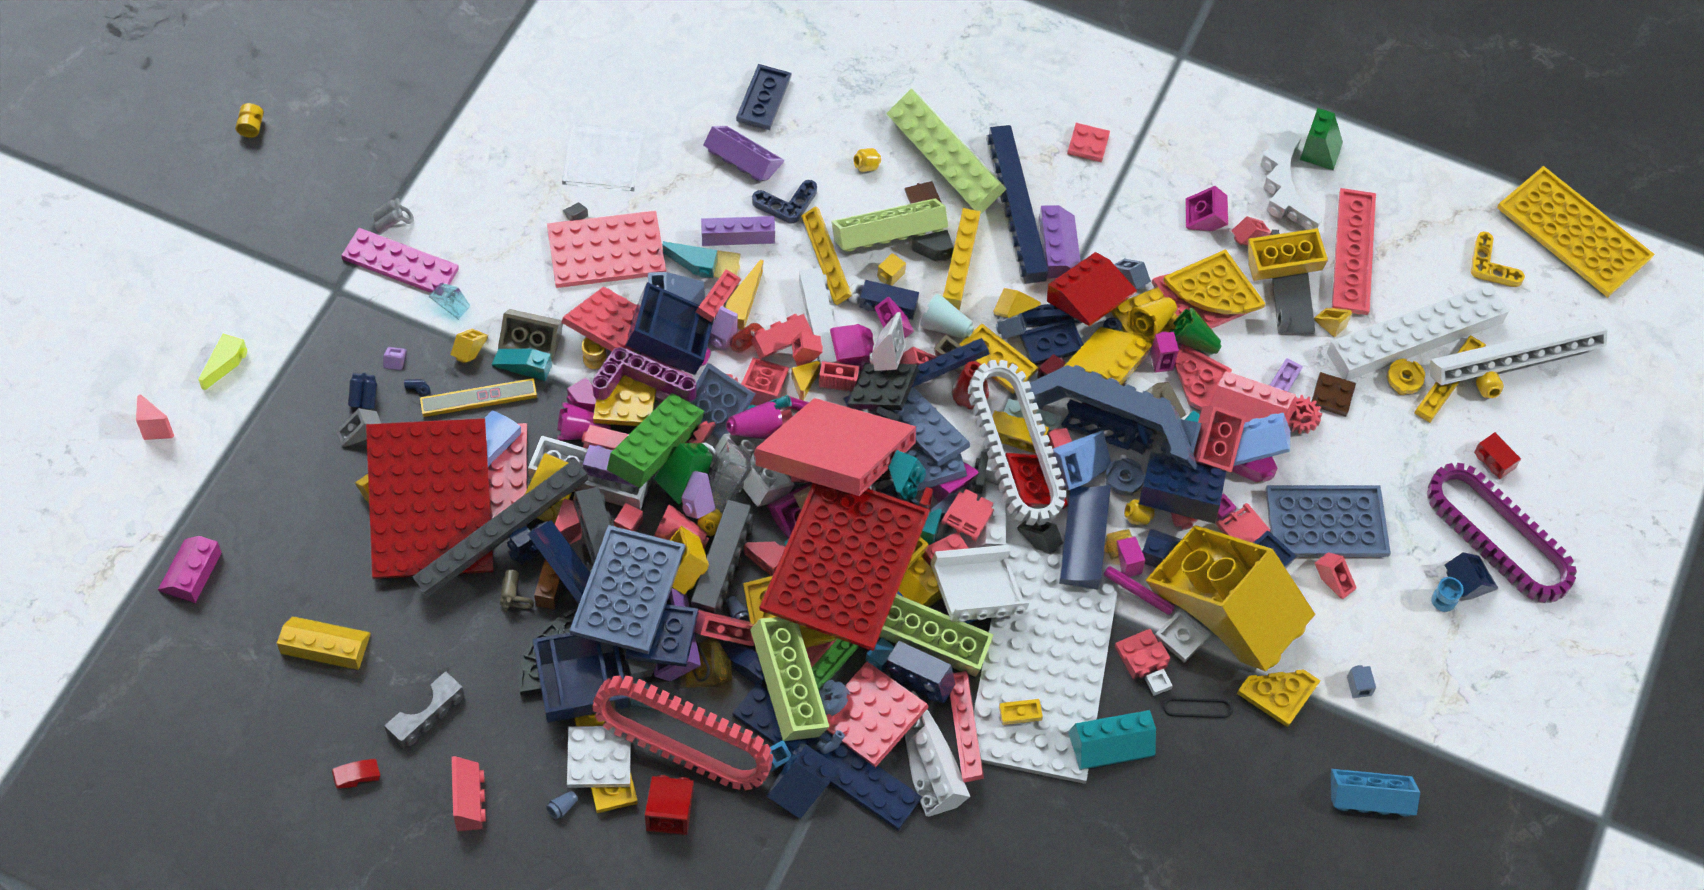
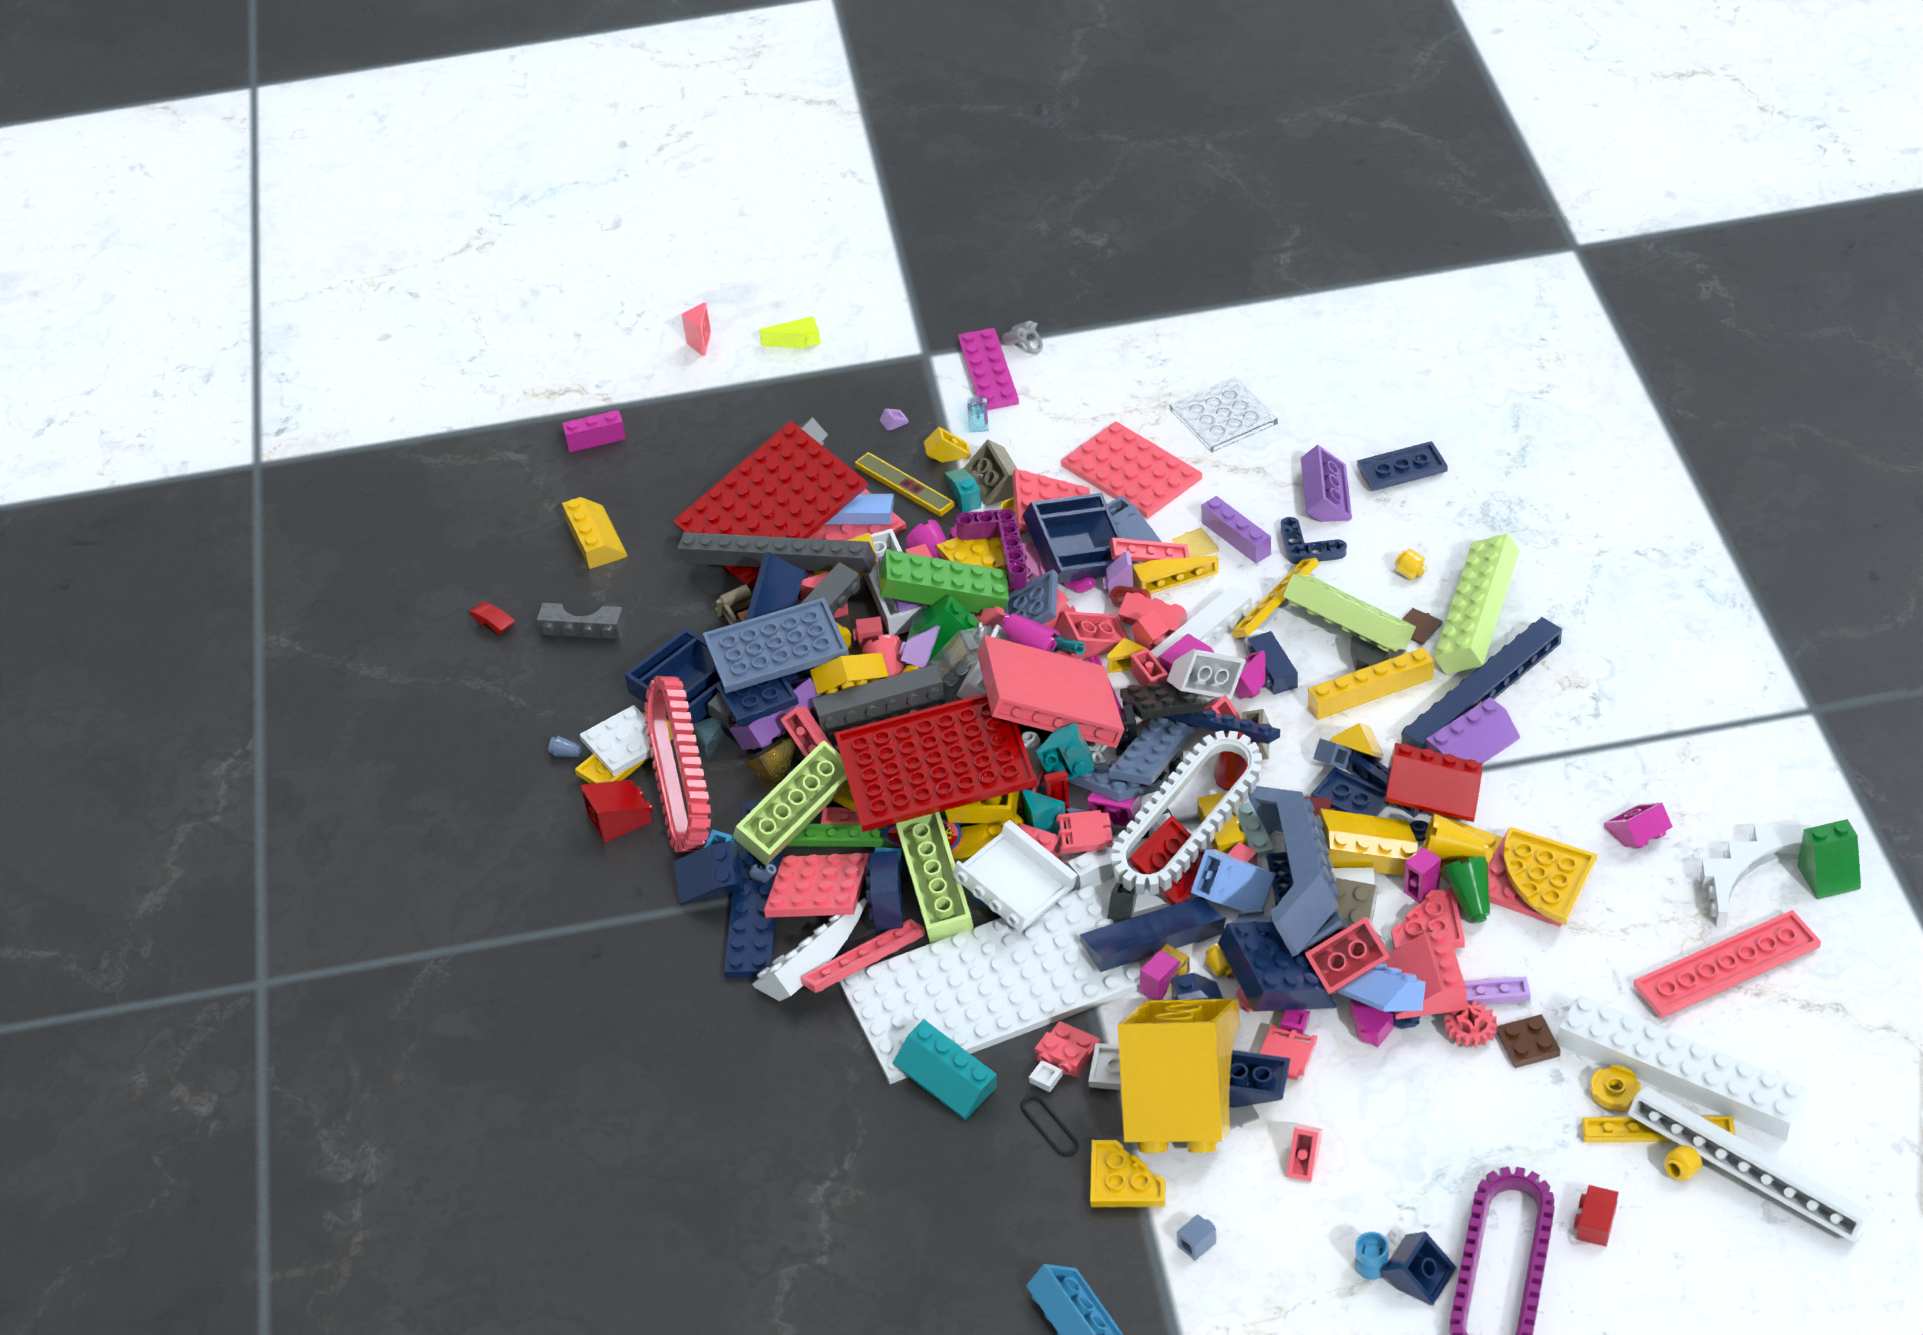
camera: 65 degrees right, 15 degrees down
(249, 120) = (1027, 215): yellow wheel -> none
(362, 391) = (839, 416): dark blue piece -> none
(417, 384) = (881, 445): dark blue arm -> none
(467, 794) = (521, 682): coral slope -> none
(576, 212) = (1148, 431): dark grey slope -> none
(695, 259) = (1178, 523): slope -> none
(833, 697) = (805, 849): sand blue plate -> none
(891, 269) = (1306, 646): yellow brick -> none
(946, 318) = (1288, 702): light aqua cone -> none
(999, 351) = (1291, 763): yellow plate -> none
(1020, 711) = (912, 984): yellow plate -> none
(1088, 142) = (1619, 699): coral plate -> none
(1135, 272) = (1494, 810): sand blue slope -> none
(1139, 590) = (1129, 986): dark pink axle -> none
(1250, 228) = (1653, 870): coral slope -> none
(1286, 254) = (1643, 902): yellow slope -> none
(1293, 303) = (1623, 936): dark grey bracket -> none
(1329, 519) = (1365, 1113): sand blue plate -> none
(1333, 320) = (1617, 994): yellow slope -> none
(1487, 267) = (1844, 1088): yellow beam -> none

